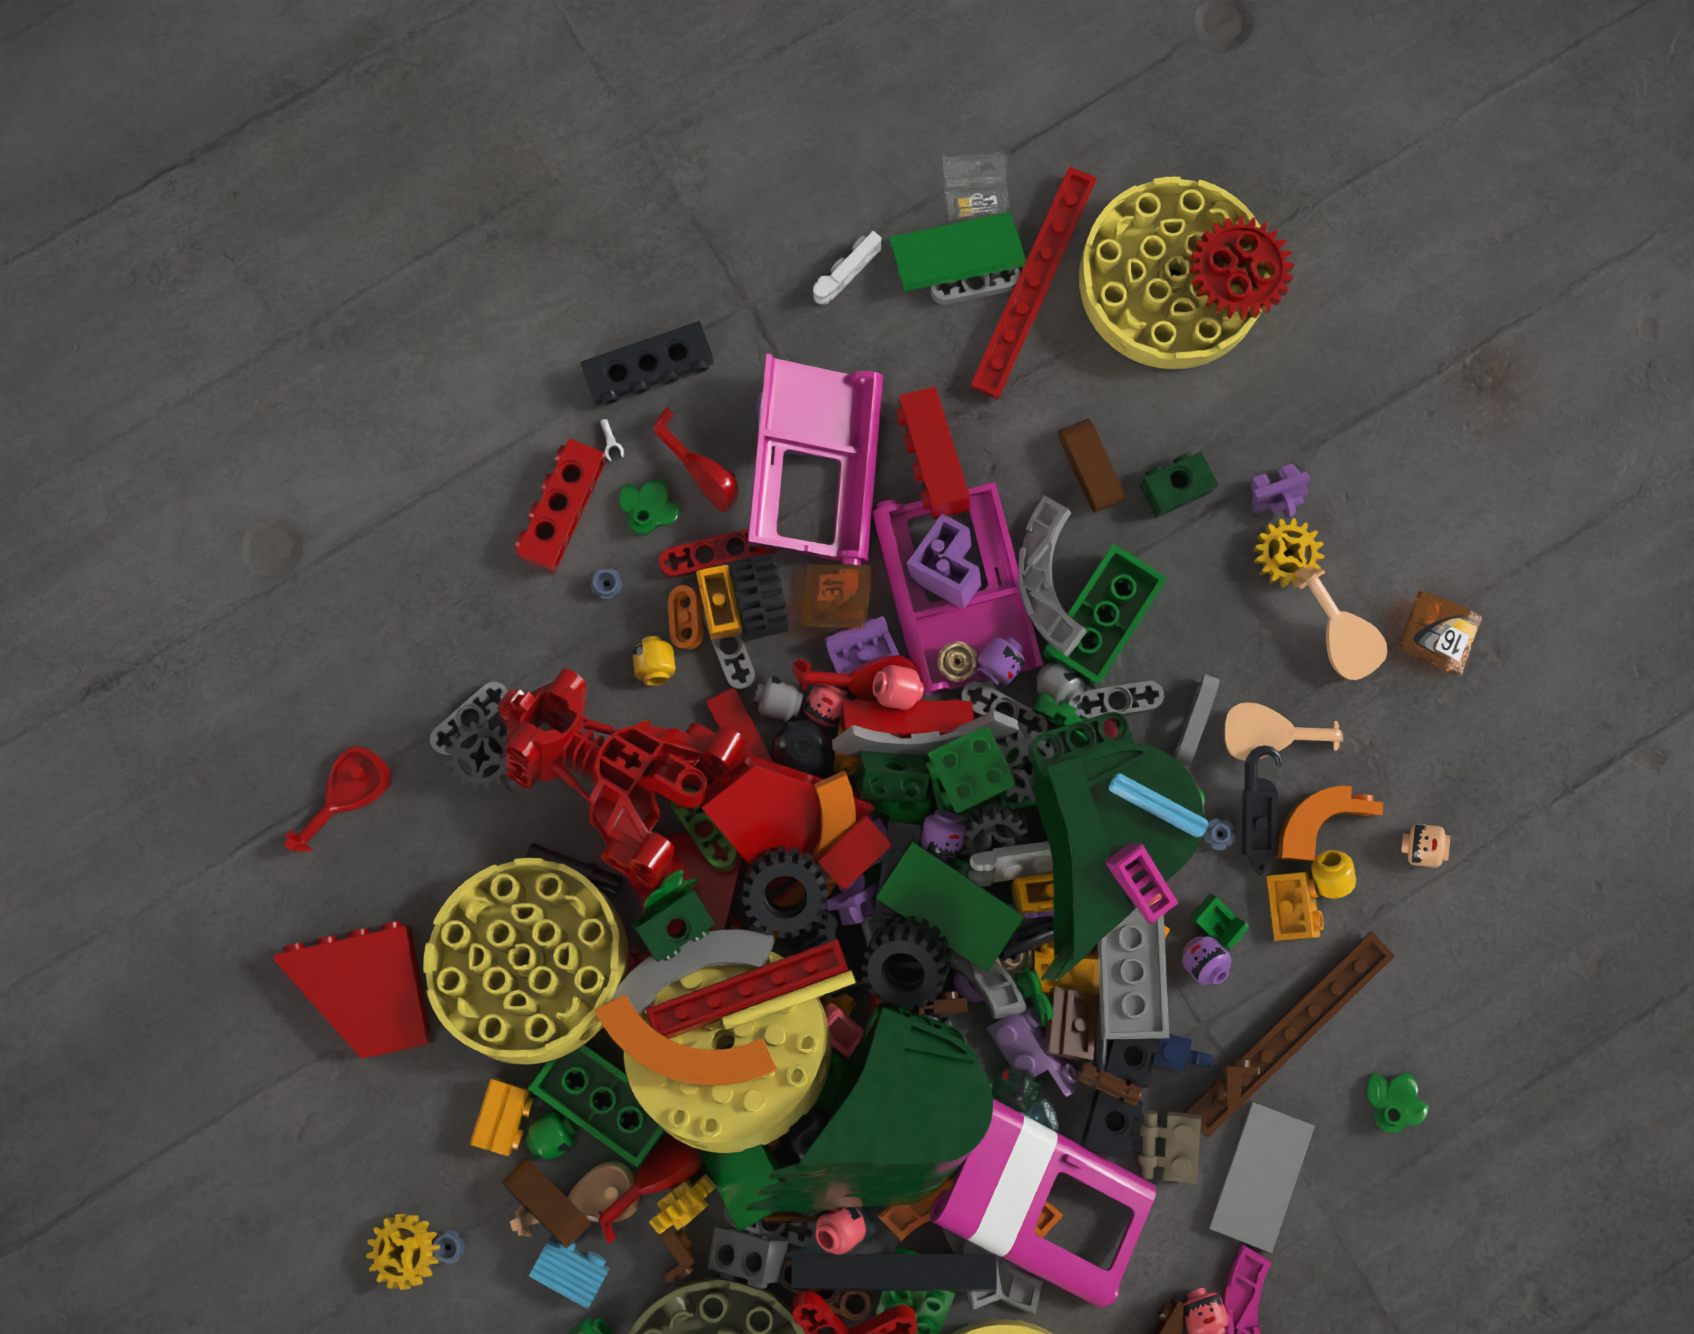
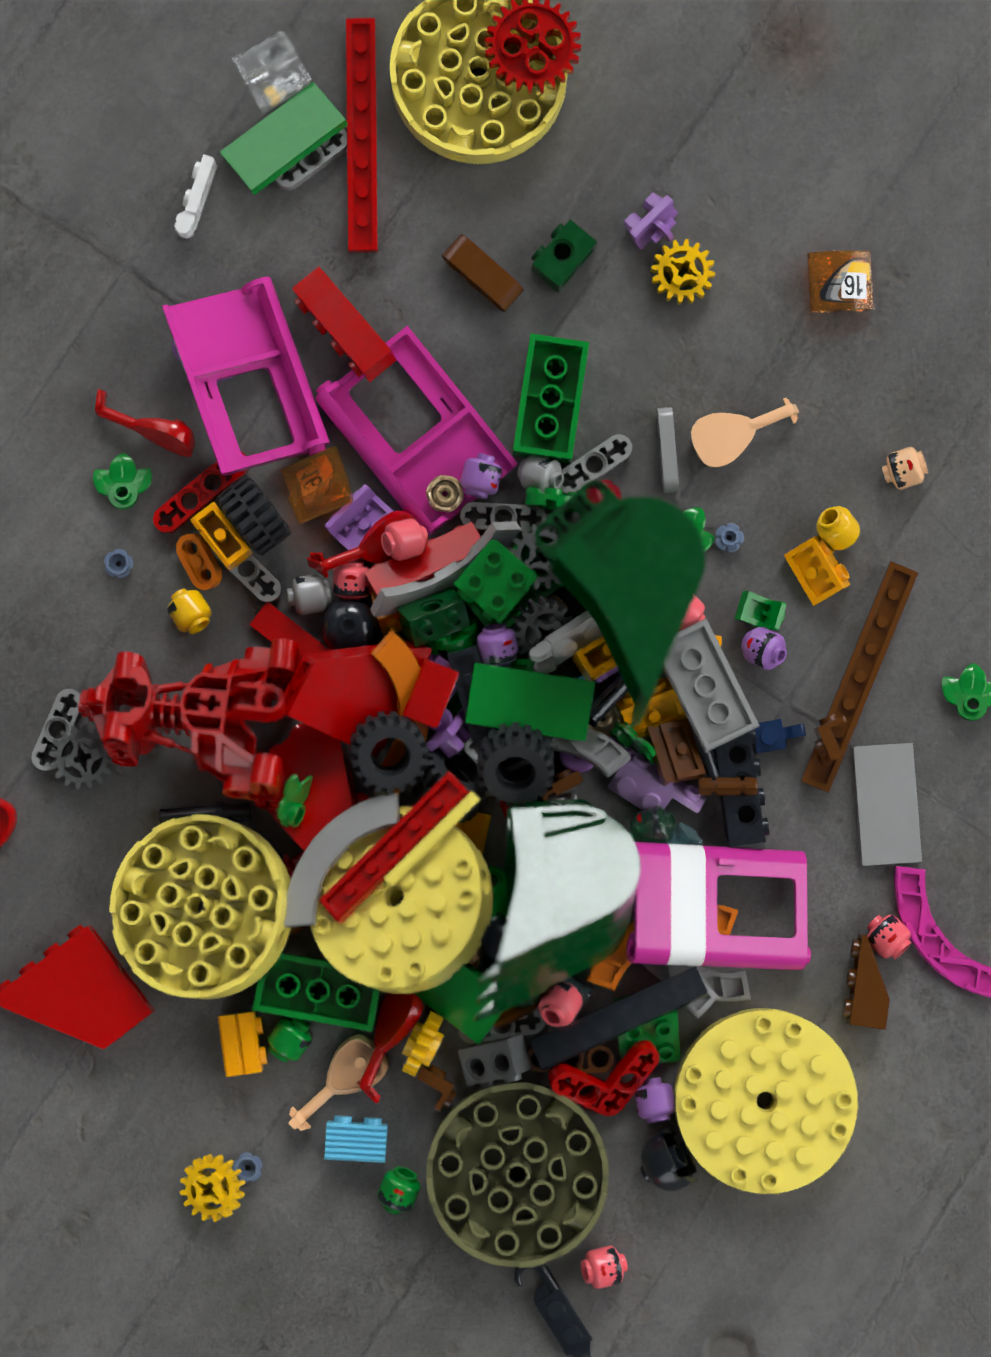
camera: 20 degrees left, 5 degrees up
(546, 1202) = (310, 1094): reddish brown beam -> none
(549, 553) = (57, 560): red brick -> none
(610, 440) = (63, 439): white hand -> none
(653, 924) = (292, 828): dark green brick -> none
(657, 349) = (46, 362): black brick -> none
(680, 1061) = (366, 928): orange tile -> none
(709, 853) = (311, 749): bright green beam -> none
(843, 1030) = (489, 843): coral tile -> none
(940, 563) = (392, 418): medium lavender brick -> none
(1036, 577) = (479, 392): light grey tile -> none
(1123, 875) = (655, 613): dark pink slope -> none
(1158, 805) = (658, 542): medium azure axle -> none
(1181, 1148) = (810, 810): dark tan plate -> none
(1259, 811) = (753, 503): black plate -> none
(1303, 821) = (793, 500): orange arch -> none
(1351, 642) = (769, 324): light nougat piece -> none

